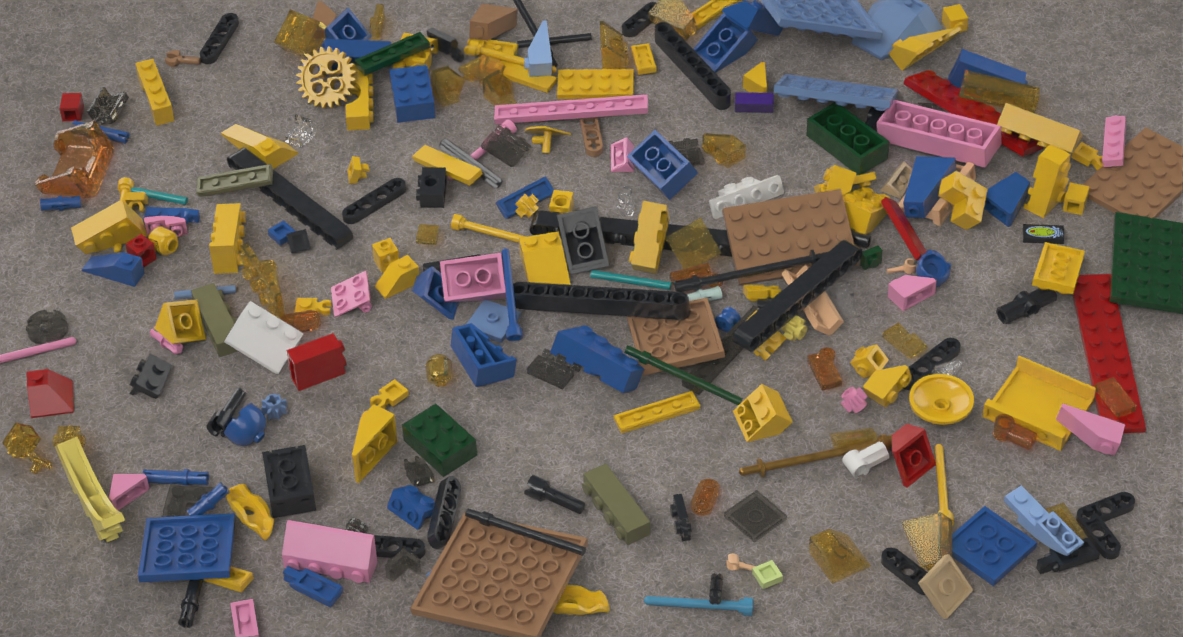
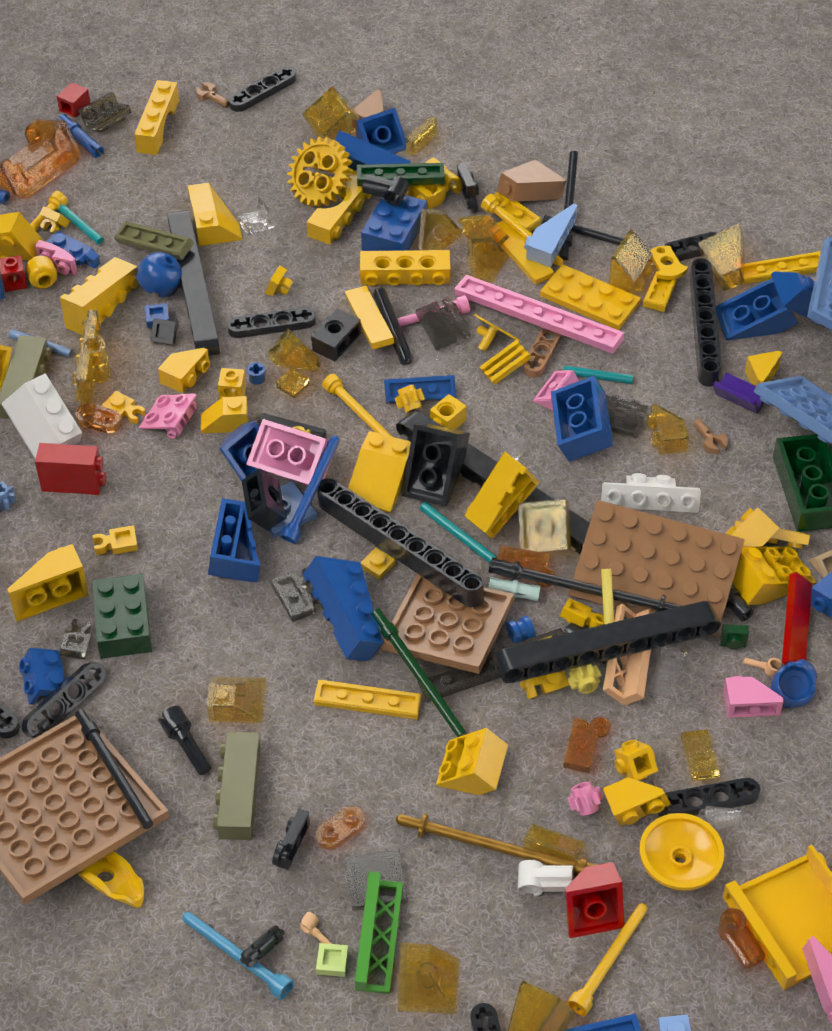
camera: 30 degrees right, 5 degrees up
(262, 200) = (159, 274): none -> blue cylinder
(336, 260) = (183, 368): none -> yellow slope
(396, 237) = (256, 373): none -> blue axle
(400, 66) = (391, 190): none -> black piece
(414, 212) = (293, 353): none -> clear yellow slope
(439, 370) = (184, 537): clear yellow head -> none
(444, 120) = (405, 267): none -> yellow brick
(481, 316) = (263, 499): none -> black brick
(565, 455) = (236, 699): none -> clear yellow slope
(579, 139) = (503, 360): none -> yellow tile
(593, 322) = (377, 563): none -> yellow plate
(643, 41) = (667, 272): none -> yellow piece
(644, 133) = (601, 375): none -> teal bar
(758, 143) = (710, 437): none -> medium nougat bar
(774, 268) = (607, 592): none -> light yellow bar
(782, 547) = (367, 934): none -> bright green fence

